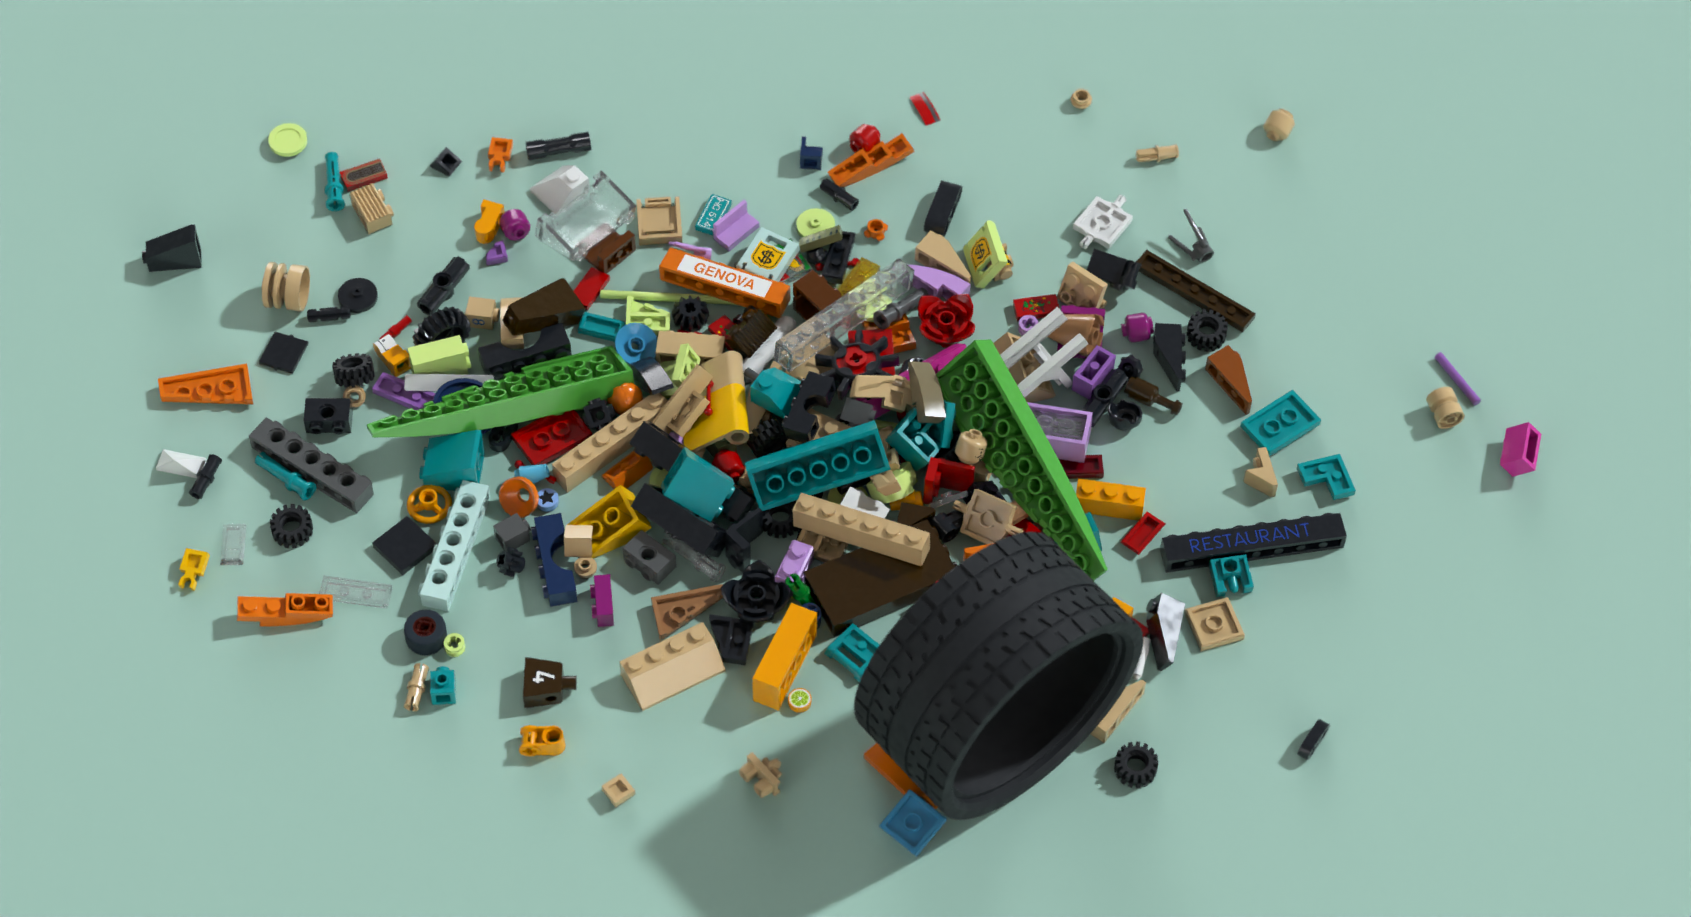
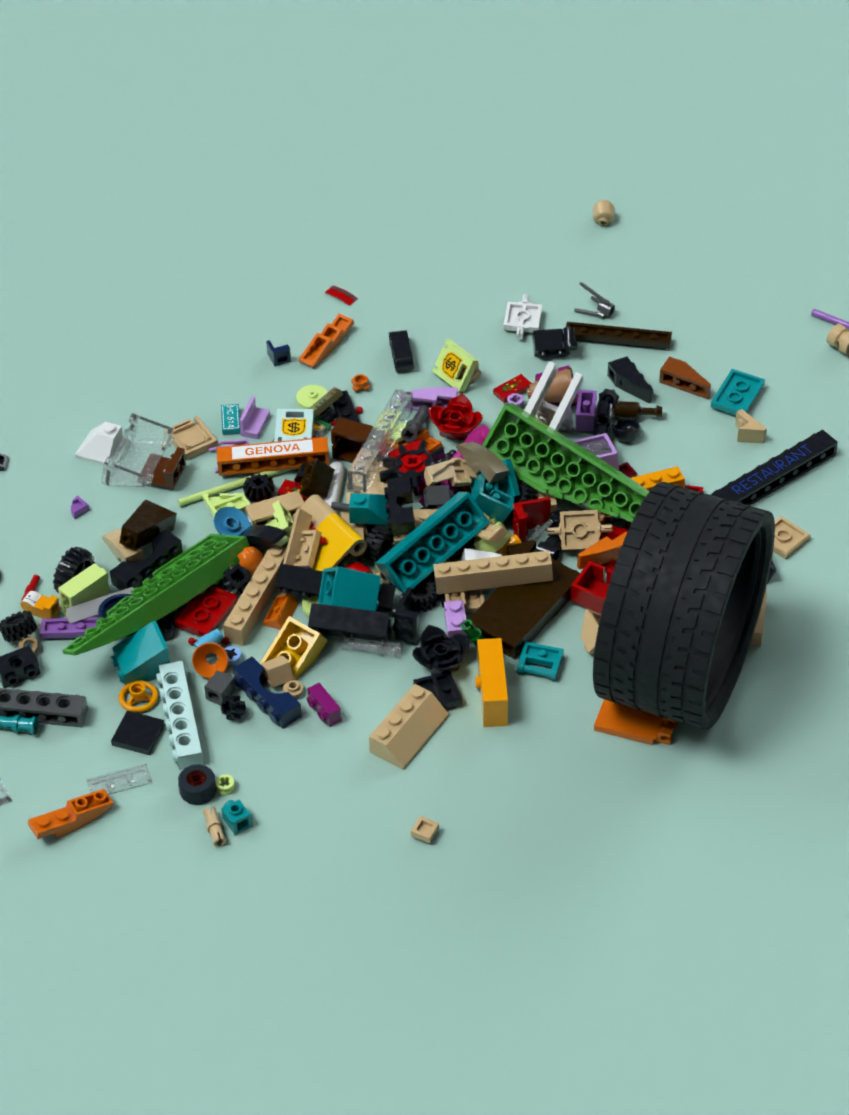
camera: 25 degrees left, 10 degrees down
(287, 515) = (39, 764): black tyre -> none
(443, 285) = (51, 542): black piece -> none
(482, 312) = (97, 547): tan brick -> none
(488, 225) = (58, 486): light orange leg -> none
(499, 152) = (36, 438): orange plate -> none
(514, 223) = (81, 480): magenta head -> none
(539, 740) = (341, 820): light orange piece -> none
(545, 682) = (316, 779): dark brown torso -> none
(574, 143) = (90, 411): black axle -> none
(591, 286) = (168, 498): red tile -> none
(600, 326) = (194, 524): teal tile -> none
(643, 547) = (339, 661): dark grey brick -> none
(679, 608) = (385, 687): medium nougat wing -> none
(765, 771) = (528, 769): tan hips -> none
(799, 700) = (519, 710): tile -> none
(839, 194) = (317, 370): black axle -> none
(861, 272) = (370, 413): clear yellow hinge -> none
(864, 137) = (312, 325): red head -> none
(913, 822) = (663, 755): dark azure tile -> none
(938, 253) = (419, 377): tan slope -> none
(971, 446) = (539, 484): tan head -> none
(1081, 99) = (452, 247): tan plate -> none
(1082, 288) = (537, 357): tan plate -> none
(1136, 752) = (795, 640): black tyre -> none
(1137, 327) = (596, 371): magenta head -> none
(1157, 153) = (530, 261): tan axle -> none
(1207, 340) = (645, 348): black tyre -> none
(1220, 574) = (771, 497): teal brick -> none
(1328, 470) = (792, 409): teal plate -> none

